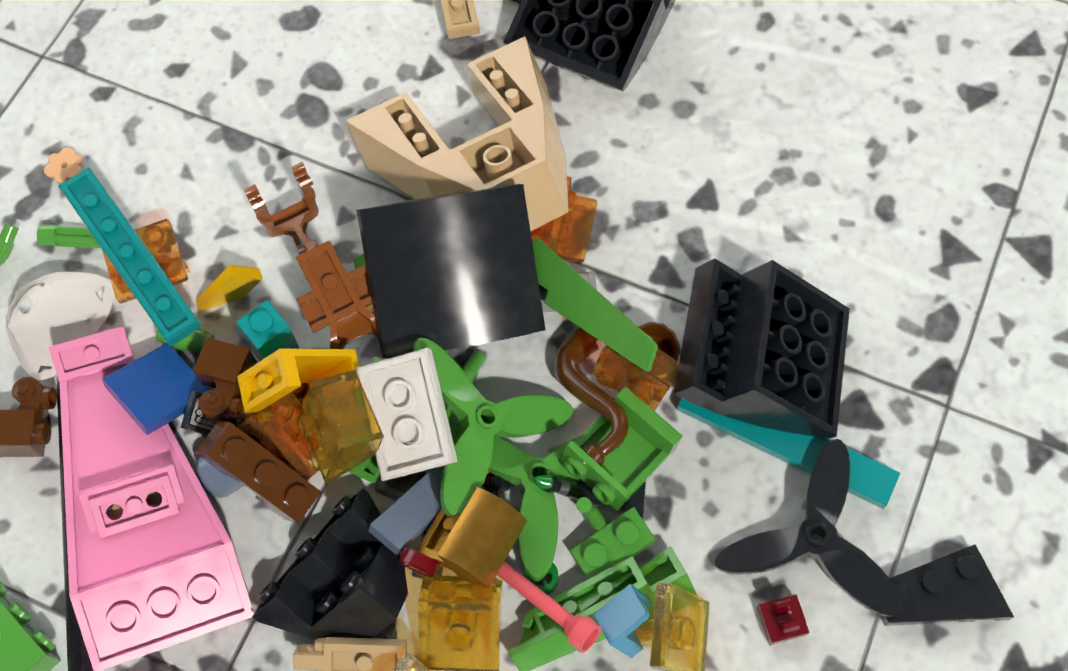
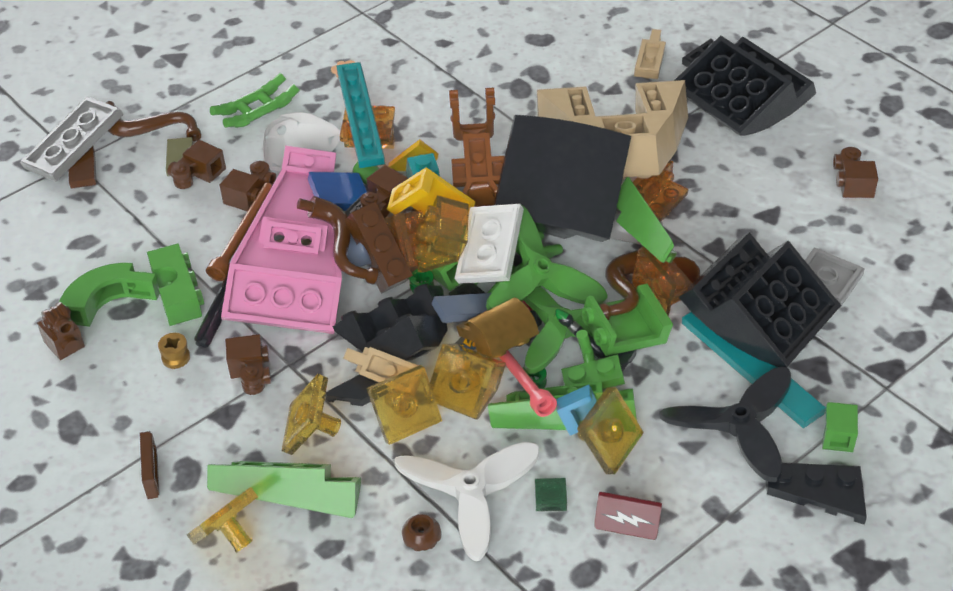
camera: 25 degrees right, 20 degrees down
(48, 573) = (219, 267): none -> dark orange piece
(65, 236) = (326, 104): bright green piece -> none
(171, 441) = (335, 216): none -> reddish brown animal
(335, 494) = (418, 277): none -> green bush
(418, 562) = (454, 329): dark red tile -> none
(783, 106) = (854, 176): none -> reddish brown brick
(783, 619) = (691, 460): dark red tile -> none
(818, 261) = (835, 273): none -> light grey tile
(934, 497) = (840, 427): none -> bright green panel

